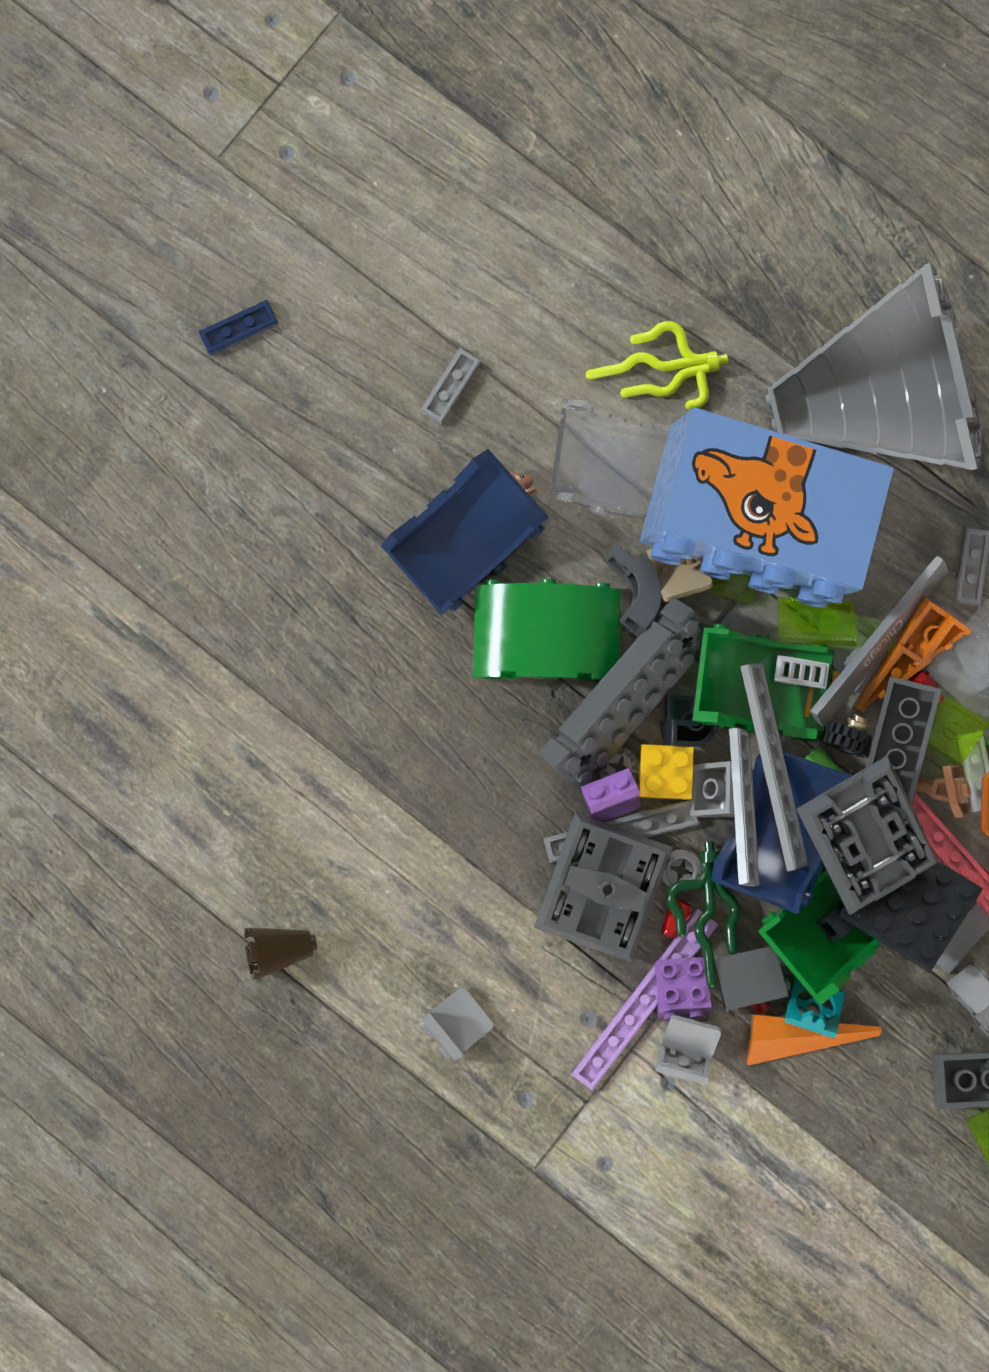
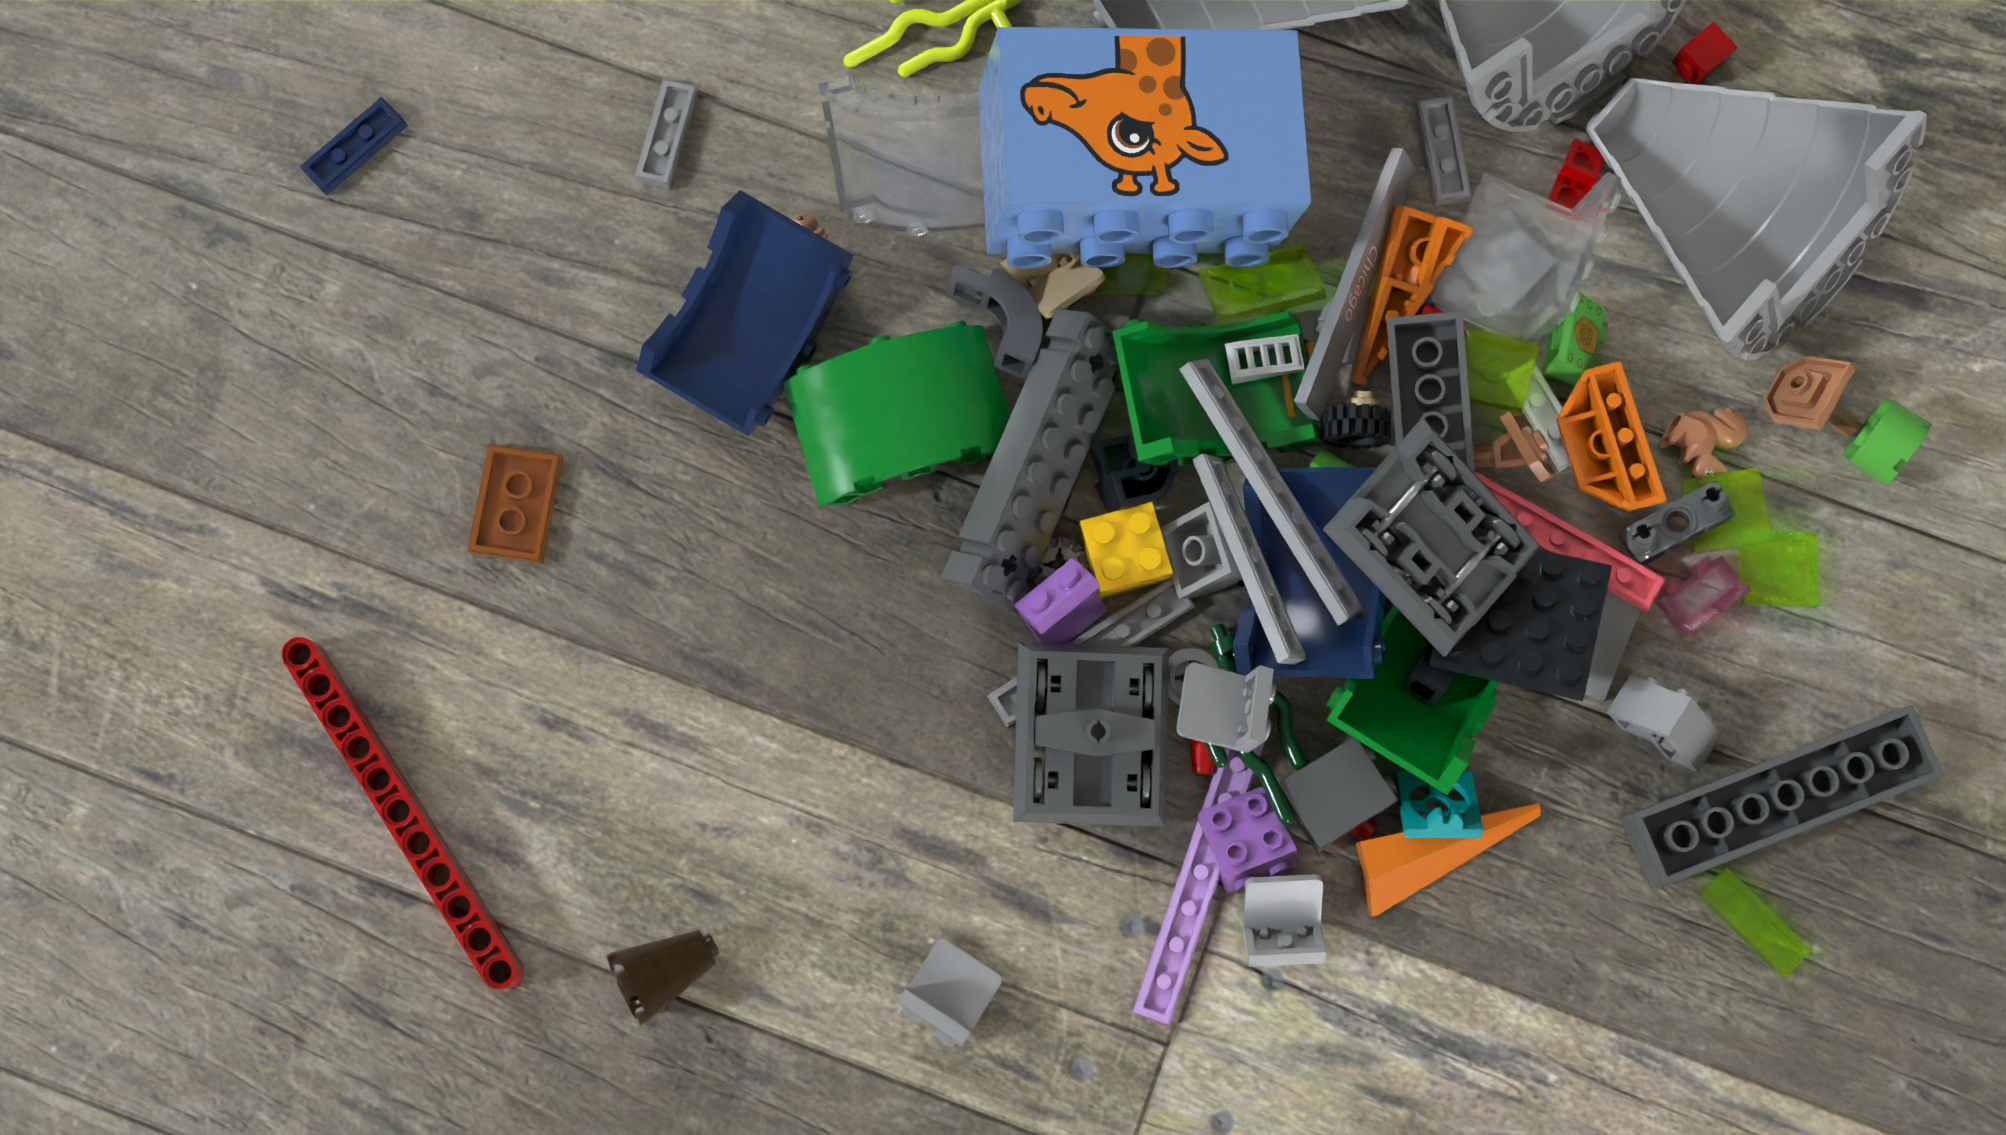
camera: 15 degrees left, 5 degrees down
(131, 781) = (386, 801): none -> red beam
(273, 609) = (515, 504): none -> dark orange tile
(696, 899) = (1226, 706): none -> light grey bracket

